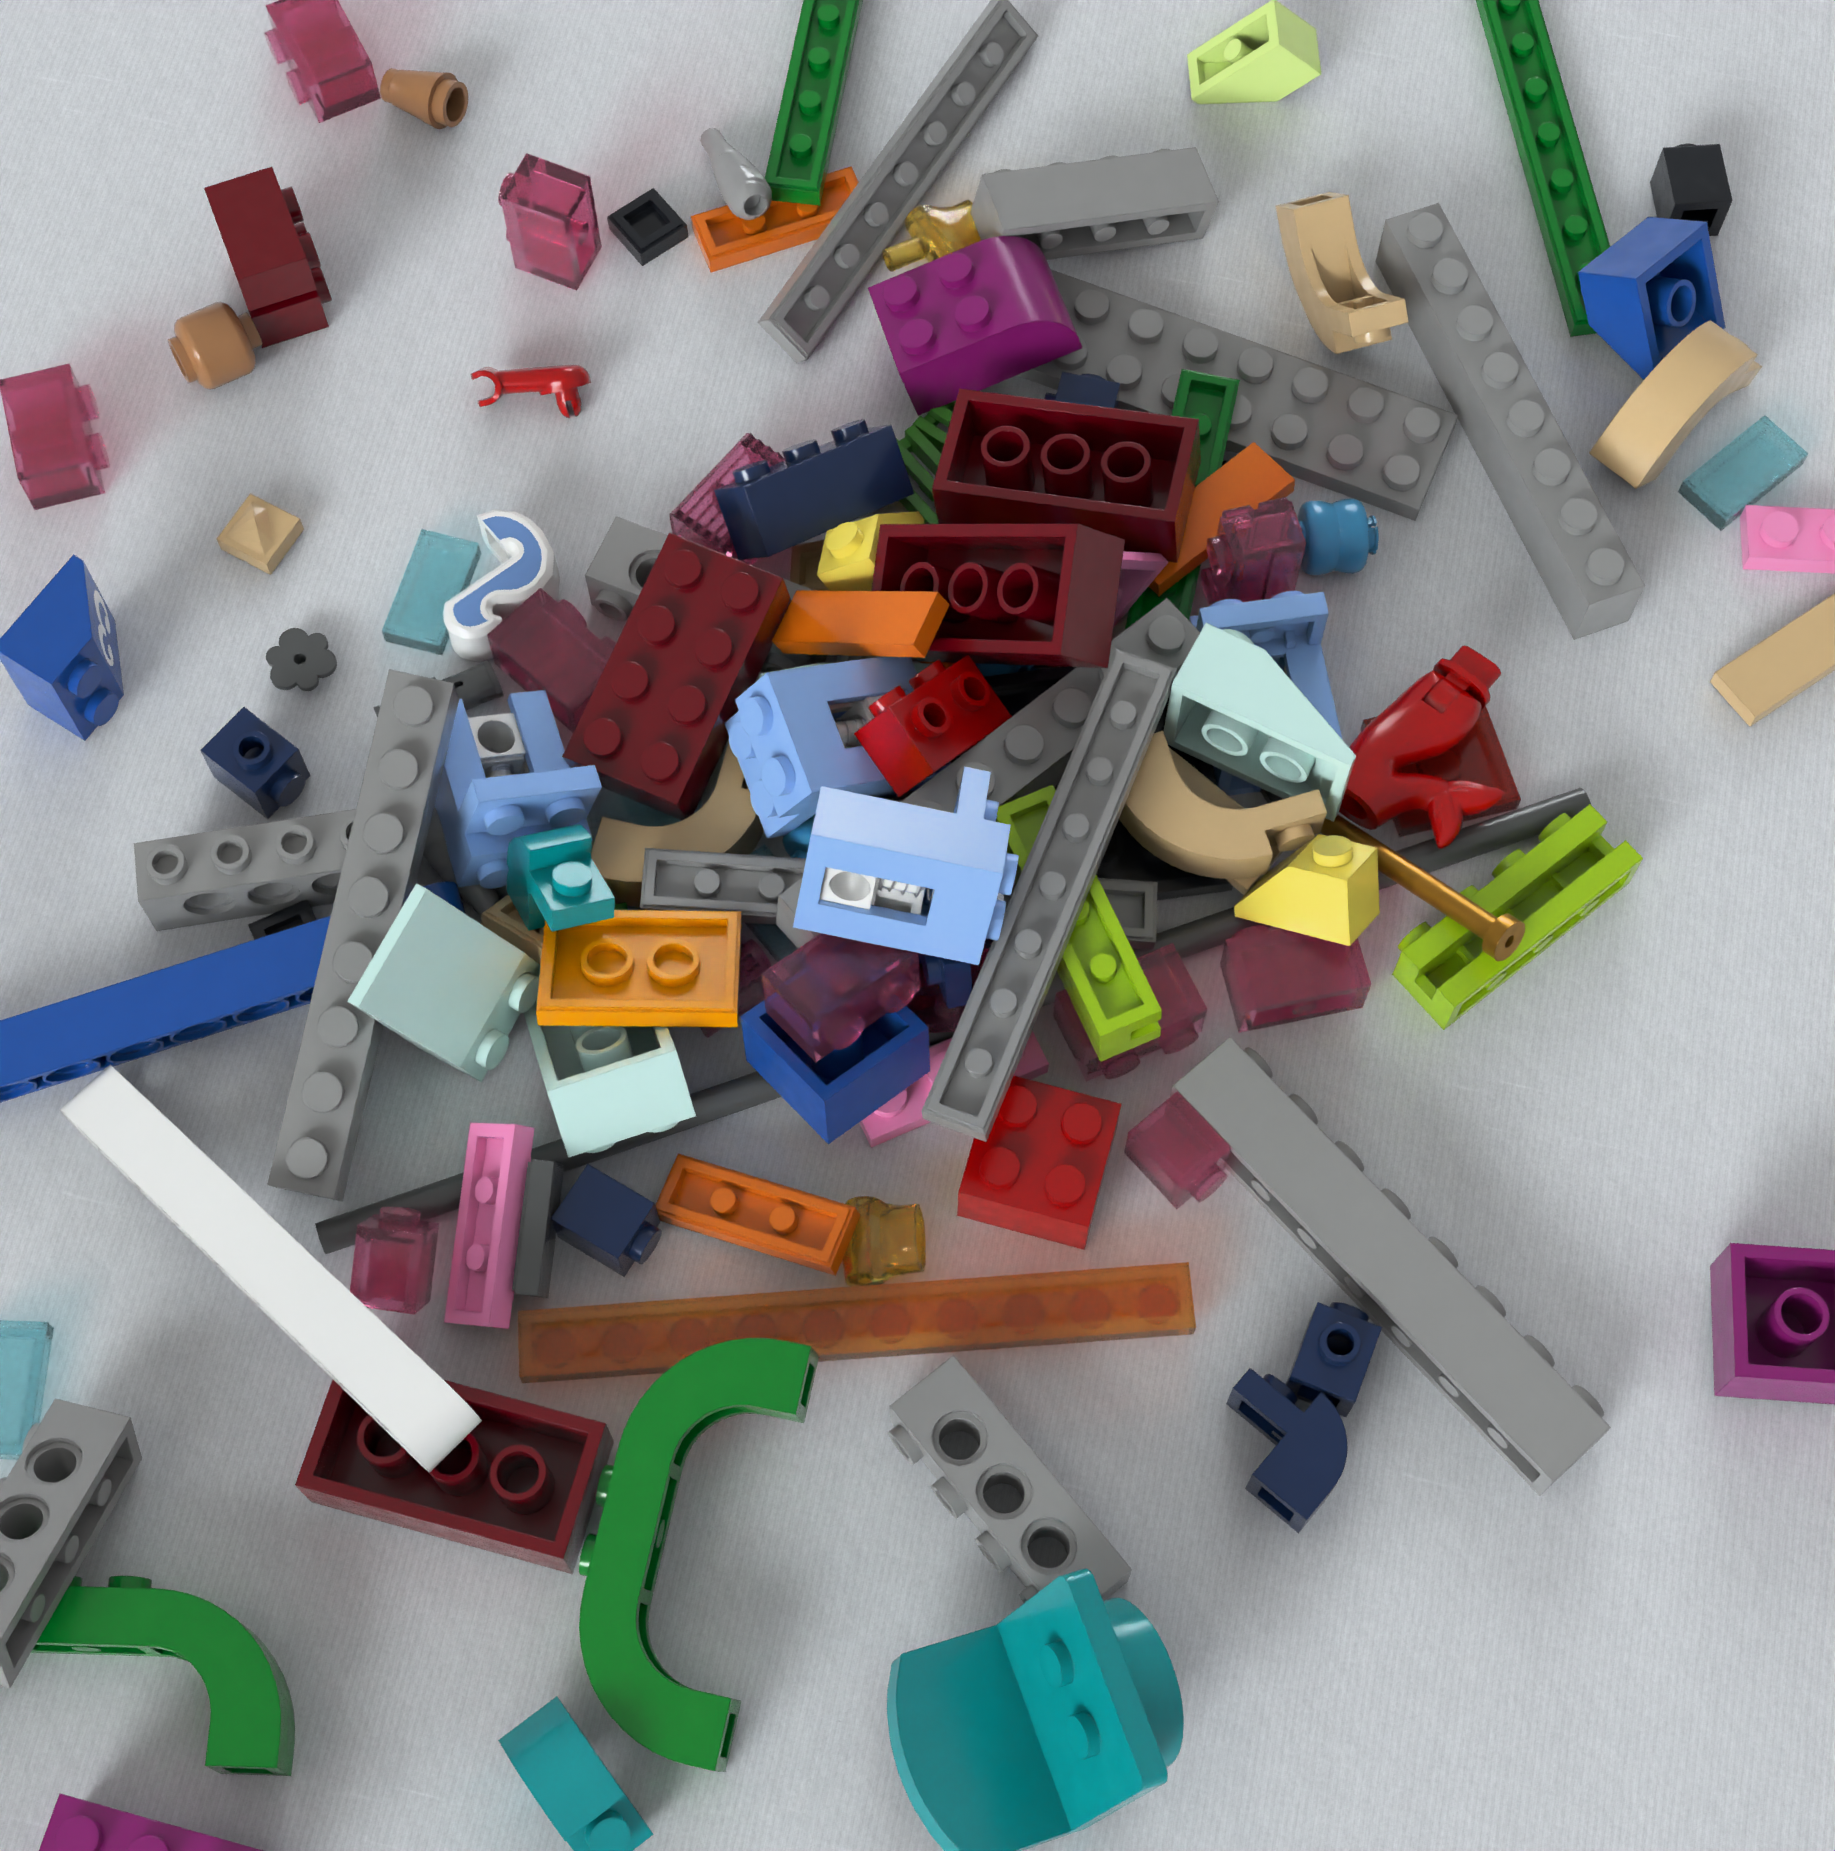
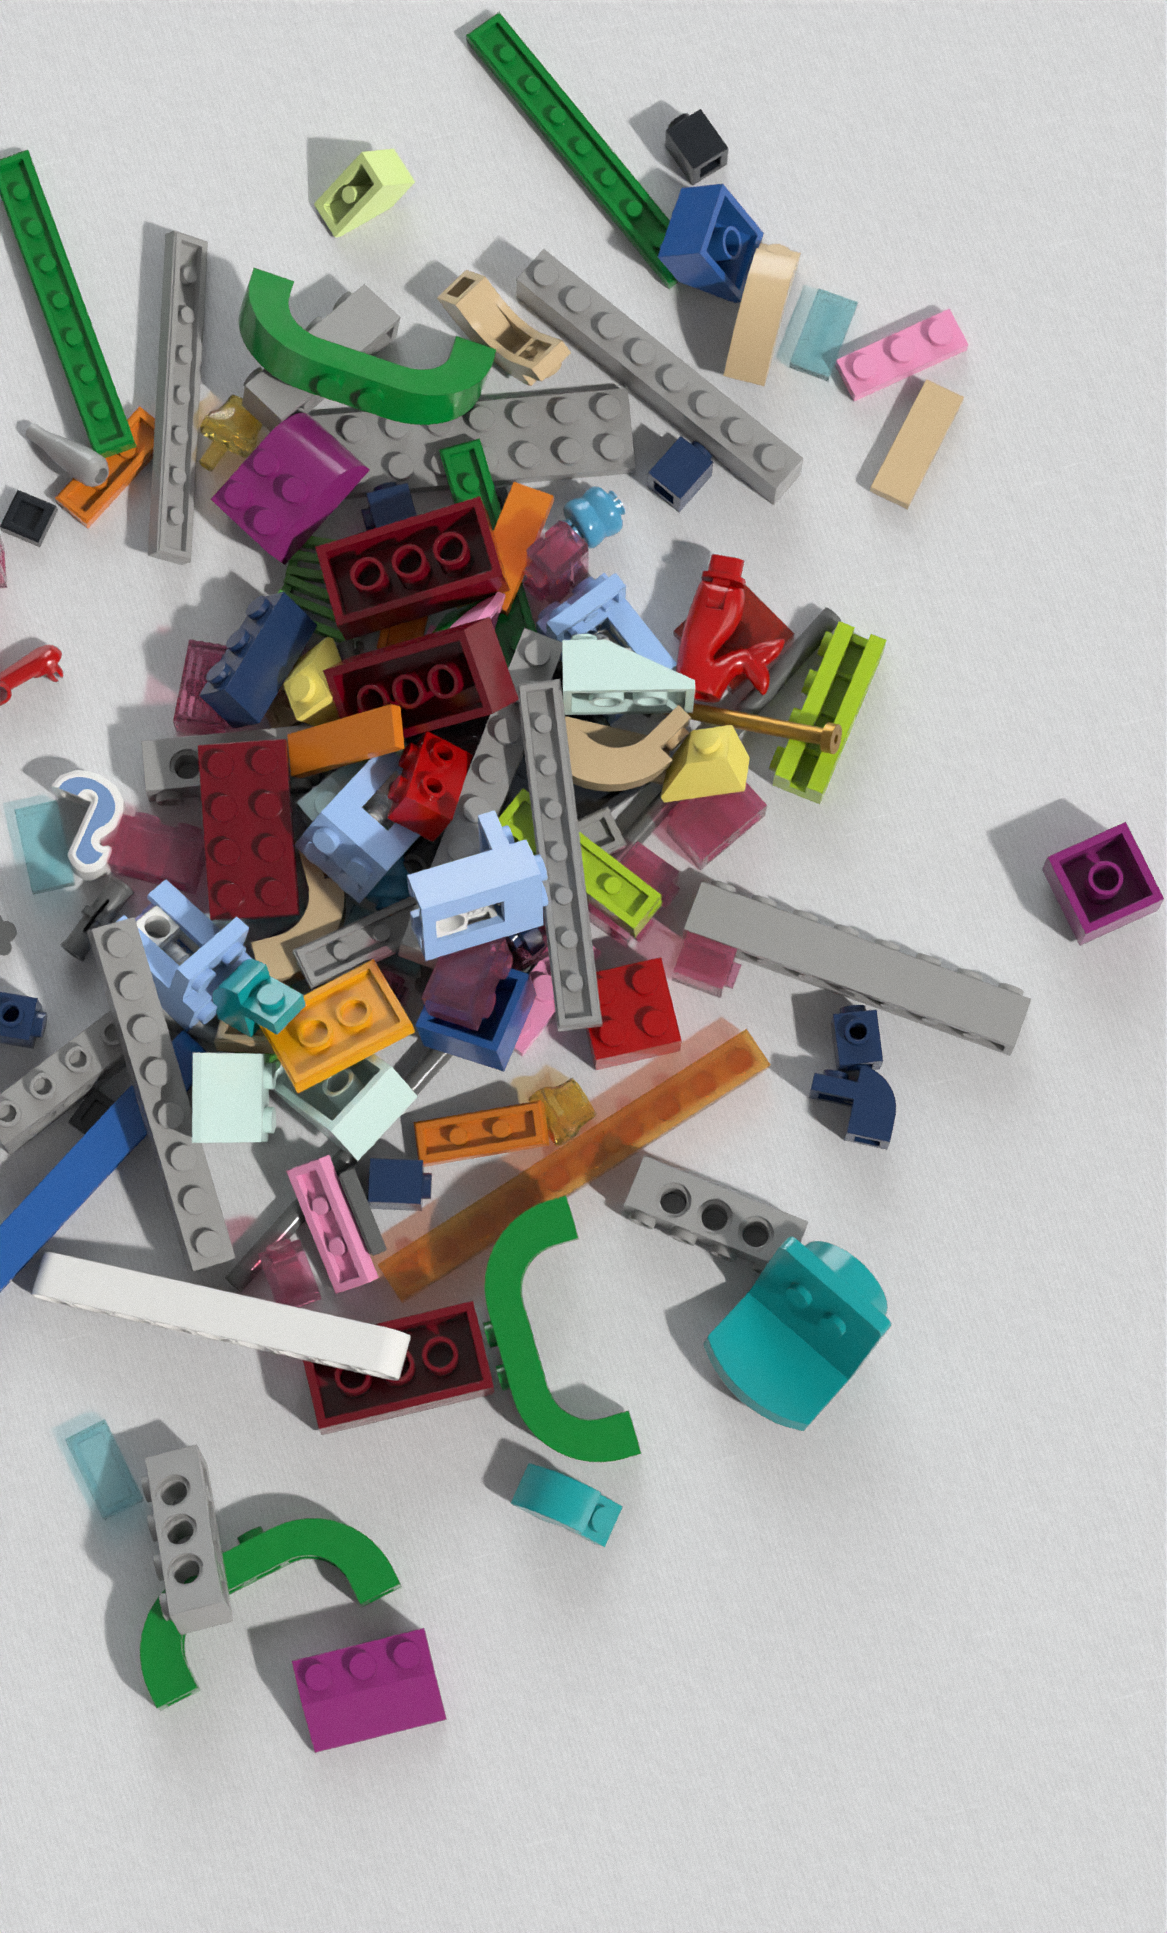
camera: 30 degrees left, 10 degrees up
(1130, 231) = (351, 375): none -> green arch
(1473, 539) = (681, 473): none -> dark blue brick

